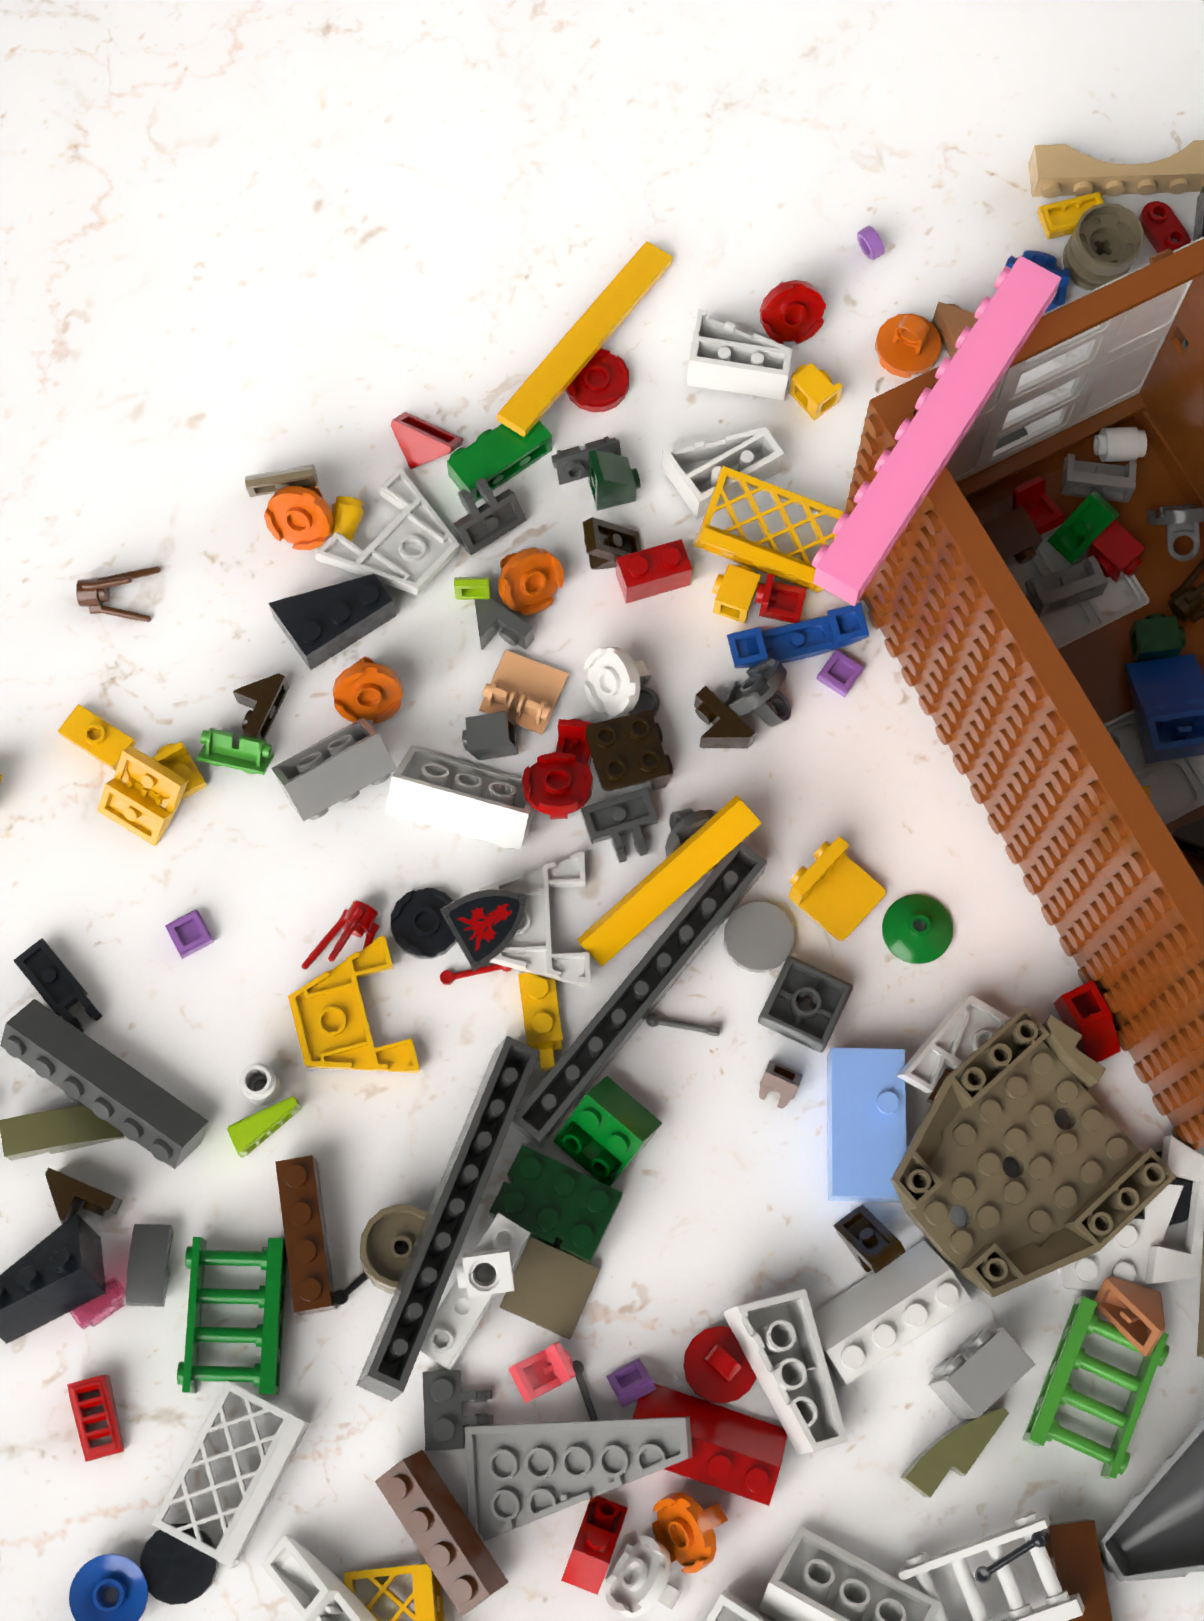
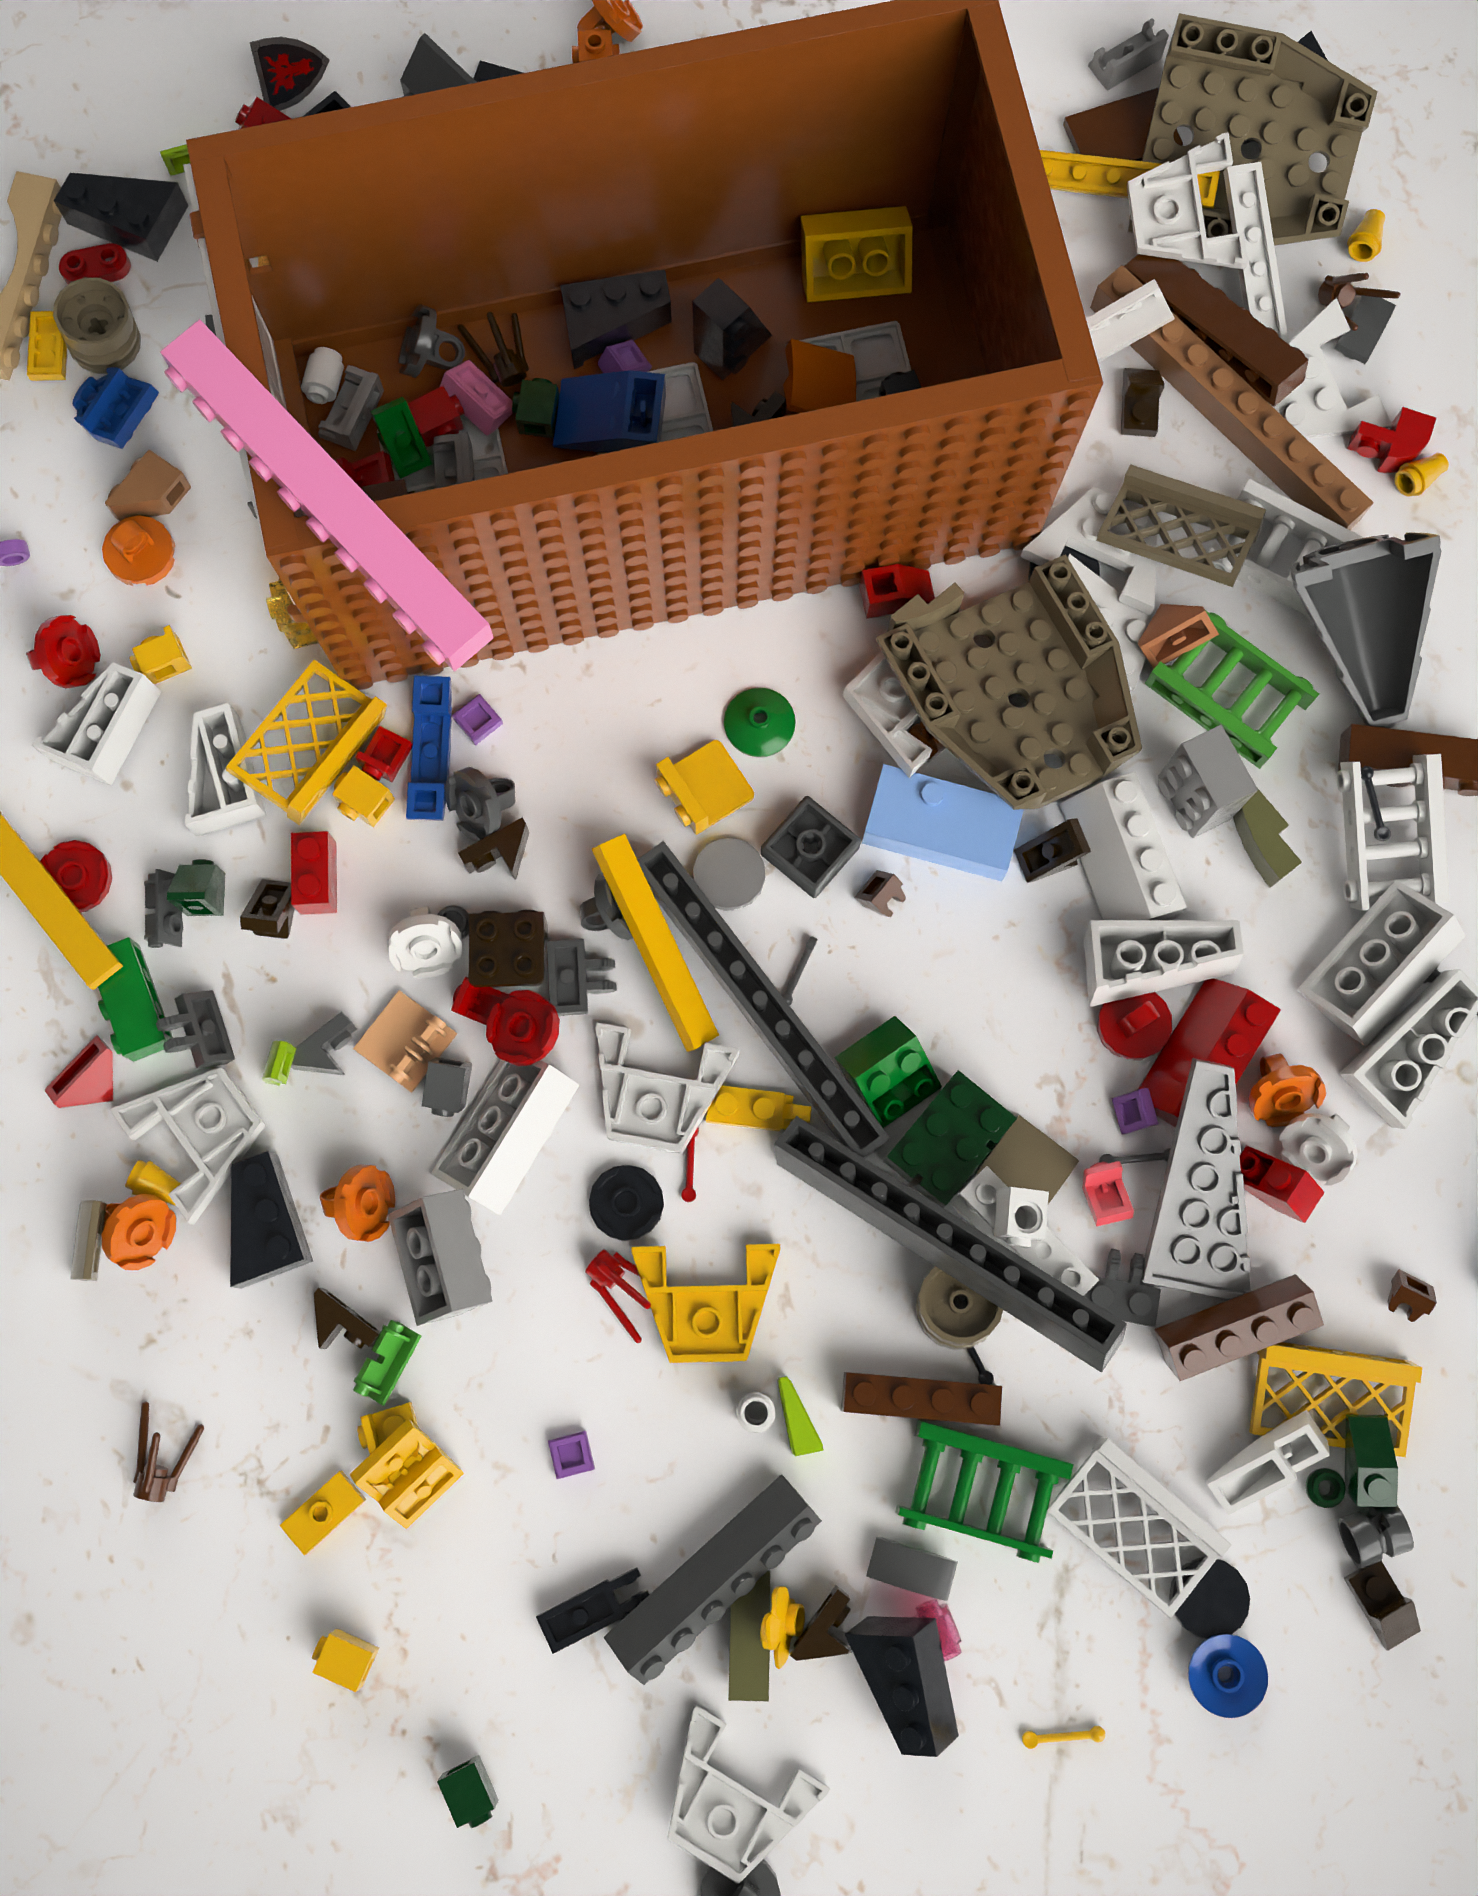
camera: 75 degrees left, 5 degrees up
(17, 1417) = (1031, 1740): none -> yellow hinge
(74, 1154) = (781, 1624): none -> yellow plate
(82, 1421) = (1018, 1655): red slope -> none
(484, 923) = (650, 1138): shield -> none
(529, 580) = (285, 1003): orange tile -> none
(1151, 584) = (480, 398): none -> bright pink slope

